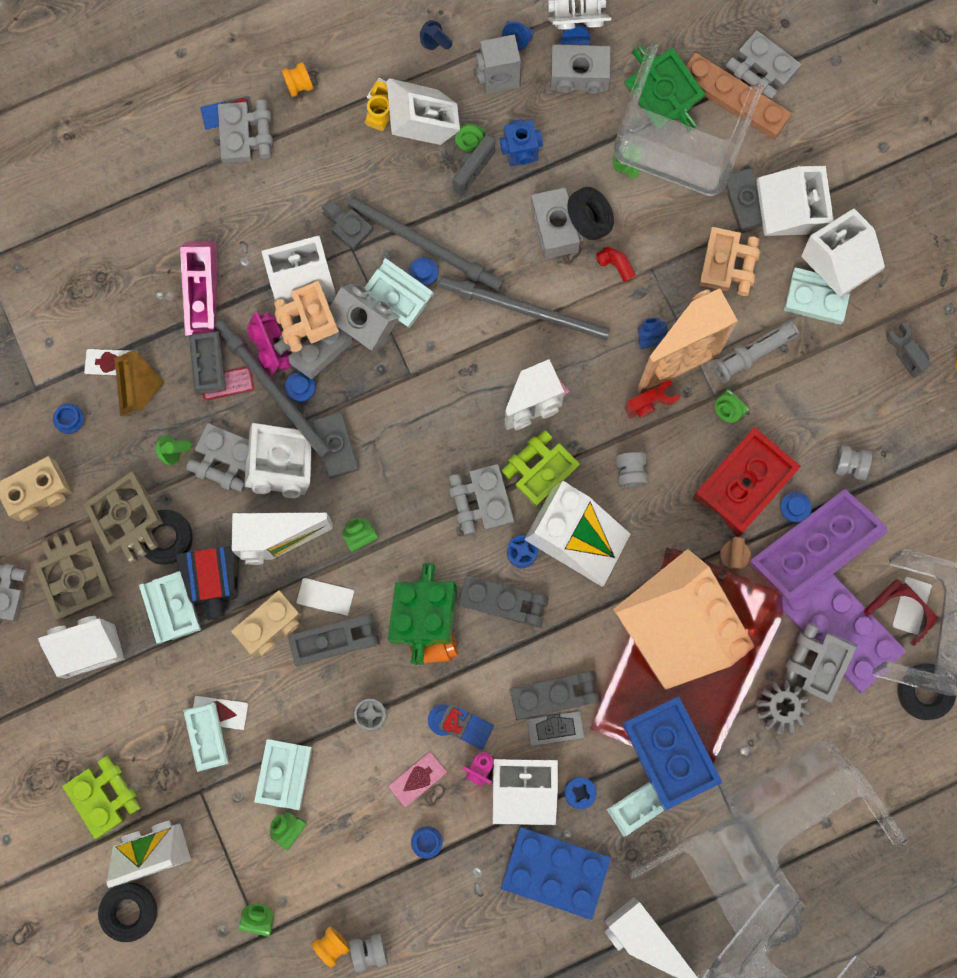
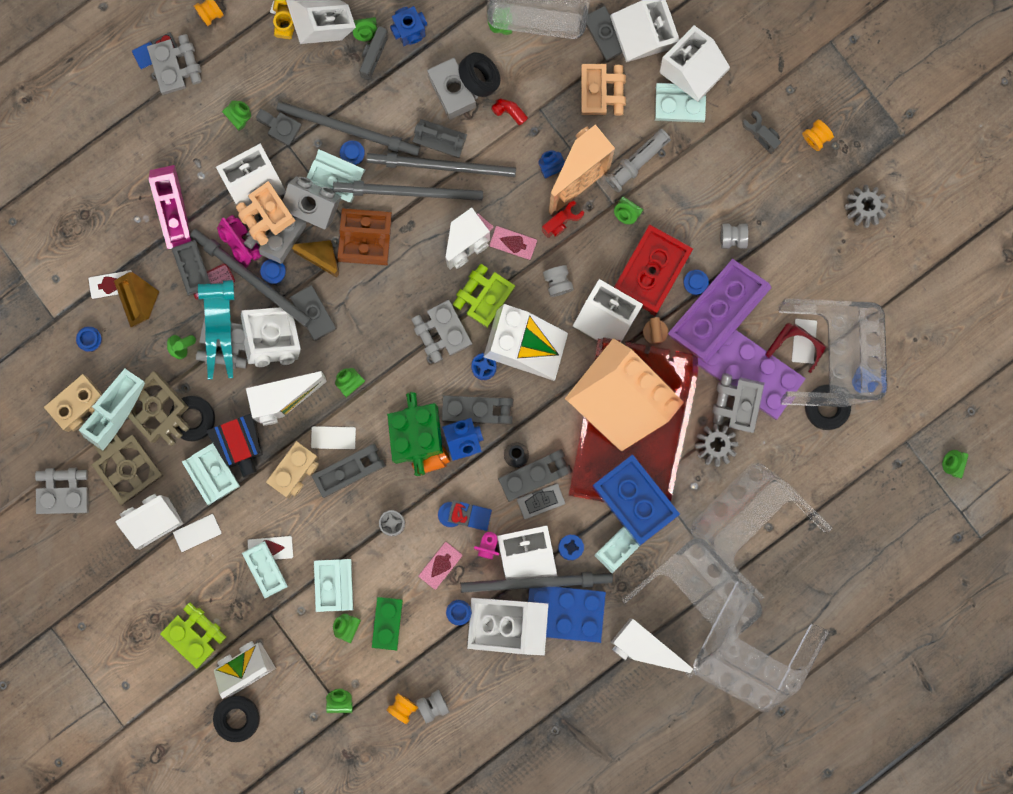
camera: 15 degrees left, 5 degrees up
(72, 505) = (112, 409): none -> light aqua slope
(137, 674) = (197, 532): none -> white sticker
(221, 431) = (217, 322): none -> teal flag
(303, 200) = (237, 113): none -> bright green plate
(337, 836) = (387, 623): none -> green plate
(358, 378) = (319, 254): none -> pearl gold slope
(416, 370) = (364, 236): none -> dark orange slope
(422, 311) = (358, 188): none -> dark grey bar
(478, 632) = (463, 438): none -> blue brick
(483, 874) = (508, 626): none -> white slope
(528, 276) = (439, 138): none -> dark grey hinge
(537, 674) = (516, 462): none -> black cone
(588, 415) = (513, 243): none -> clear pink sticker
(589, 836) = (585, 579): none -> dark grey bar
(683, 519) = (607, 313): none -> white slope

